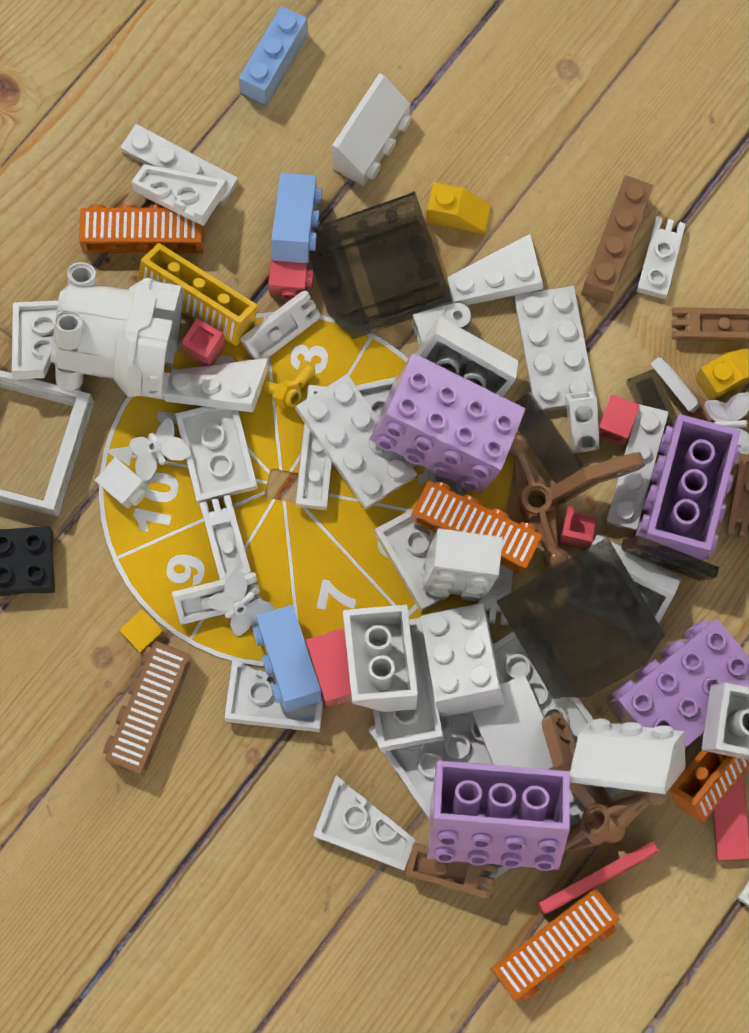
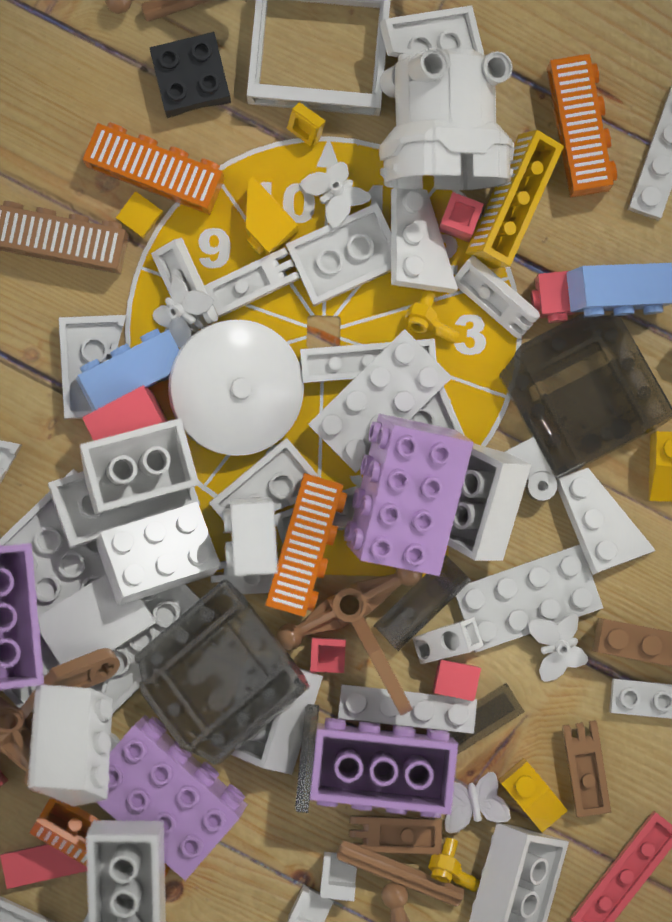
camera: 75 degrees right, 10 degrees up
(89, 464) = (305, 124): none -> yellow tile
(101, 608) = (154, 168): none -> orange brick
(122, 483) = (290, 162): white brick -> none
(170, 515) = (266, 220): none -> yellow slope
(180, 191) = (629, 158): white wing -> none
(319, 565) = (236, 387): none -> white dish
(601, 327) = (560, 645): none -> white piece
(676, 384) = (508, 737): white tile -> none

